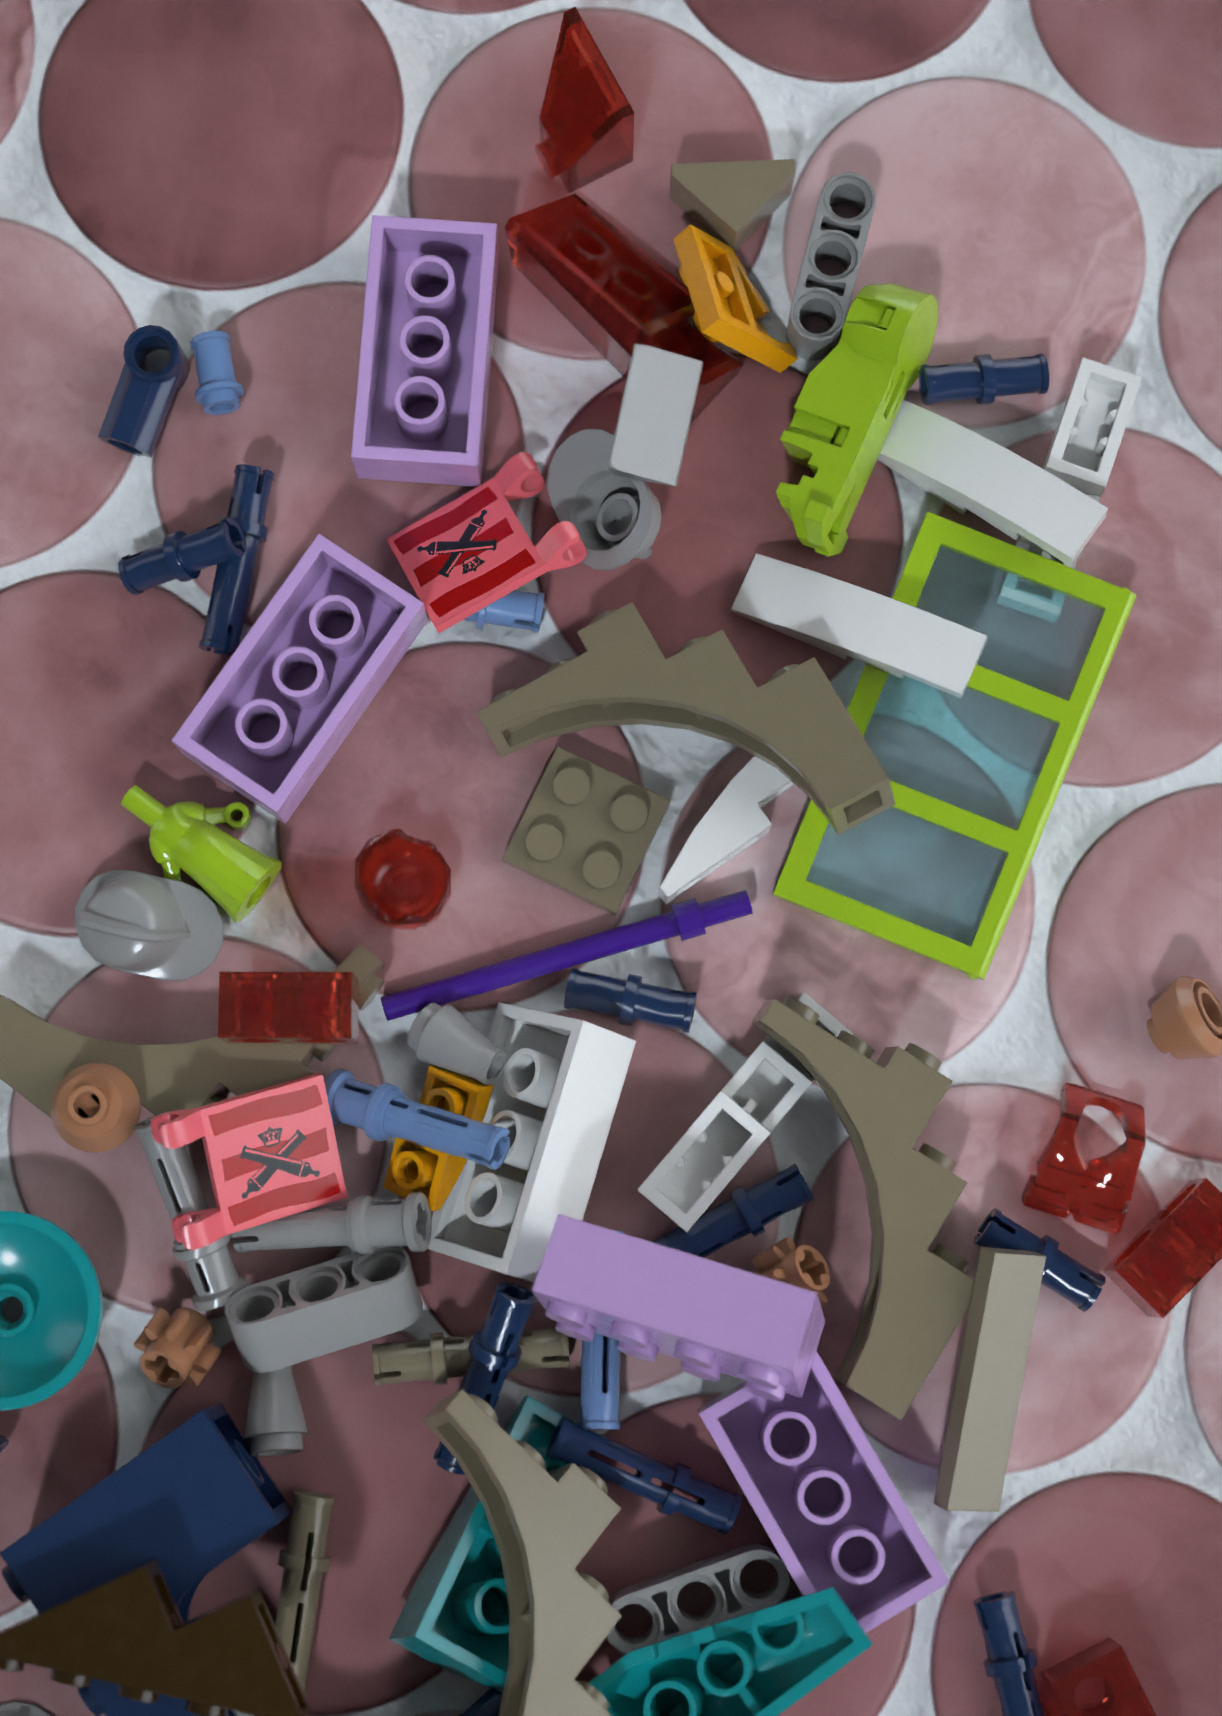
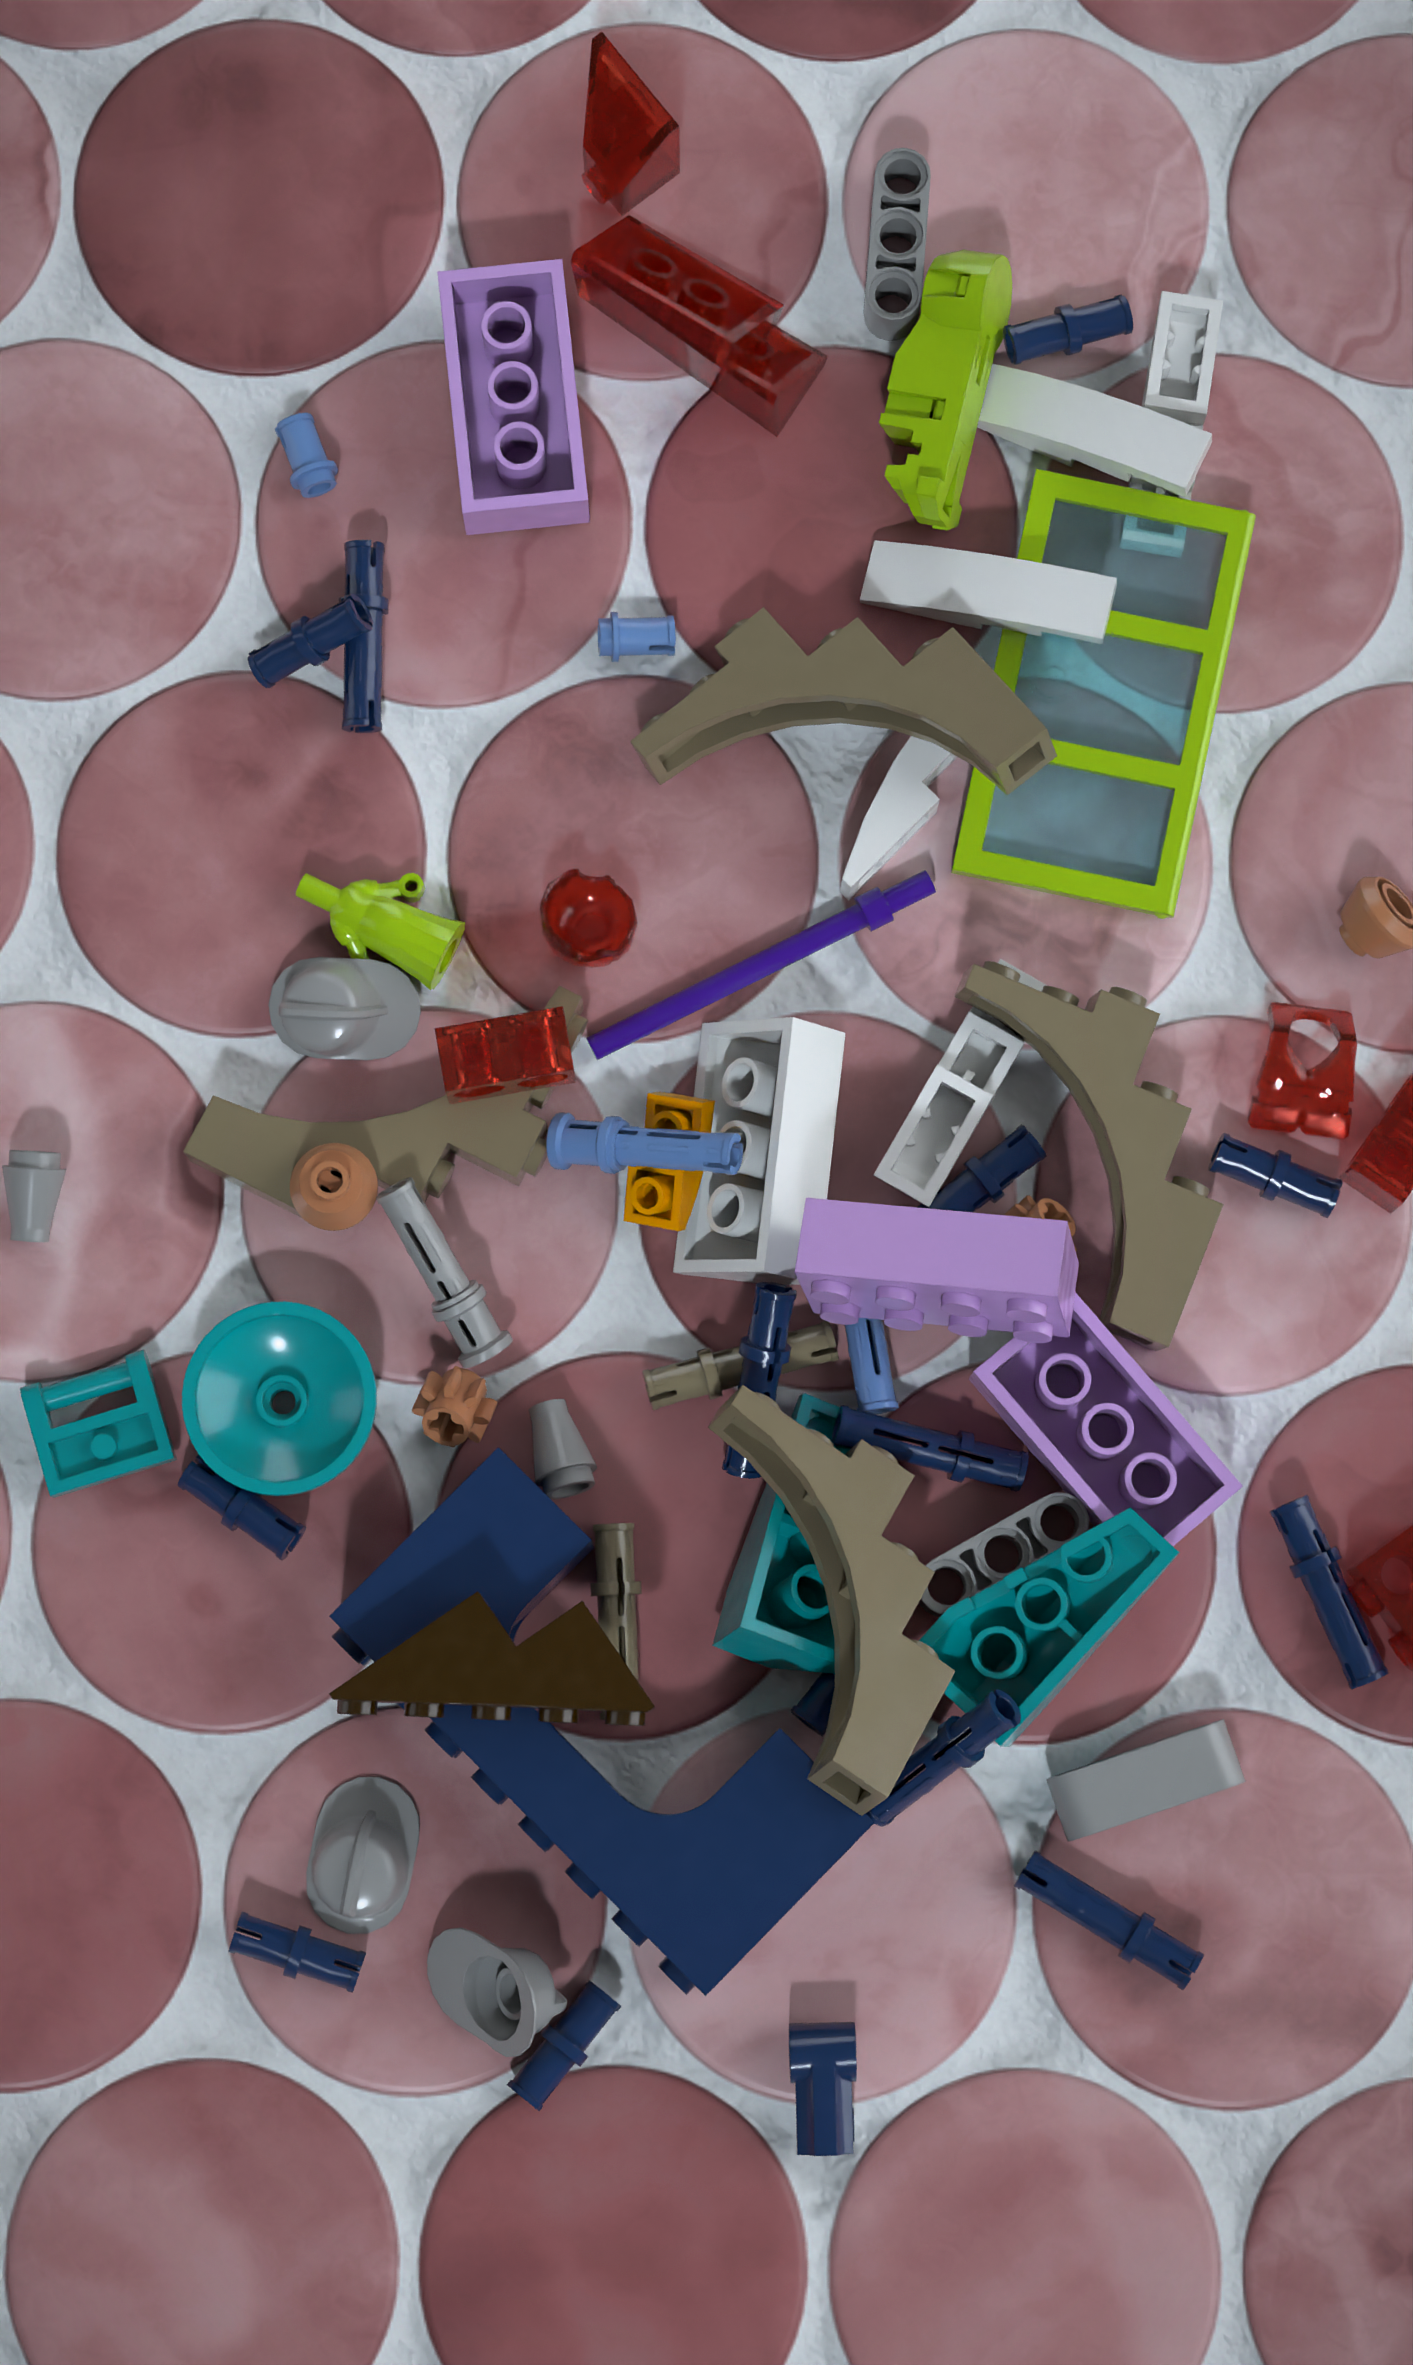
camera: 10 degrees left, 0 degrees up
(142, 396) = (239, 490): dark blue piece -> none
(264, 1155) = (508, 1204): flag -> none
(301, 678) = (452, 739): lavender brick -> none
(323, 1308) = (590, 1342): light grey beam -> none
(359, 1225) = (610, 1256): light grey pin -> none
(452, 1043) = (668, 1068): light grey cone -> none
(478, 548) = (600, 582): coral flag -> none
(586, 831) = (757, 841): dark tan plate -> none
(611, 512) = (714, 513): light grey piece -> none
(630, 1000) = (831, 996): dark blue pin -> none
(655, 415) = (754, 420): light grey slope -> none
(726, 301) = (799, 295): light orange wing -> none
(732, 195) = (785, 191): dark tan slope -> none
(989, 1380) = (1247, 1295): dark tan tile -> none

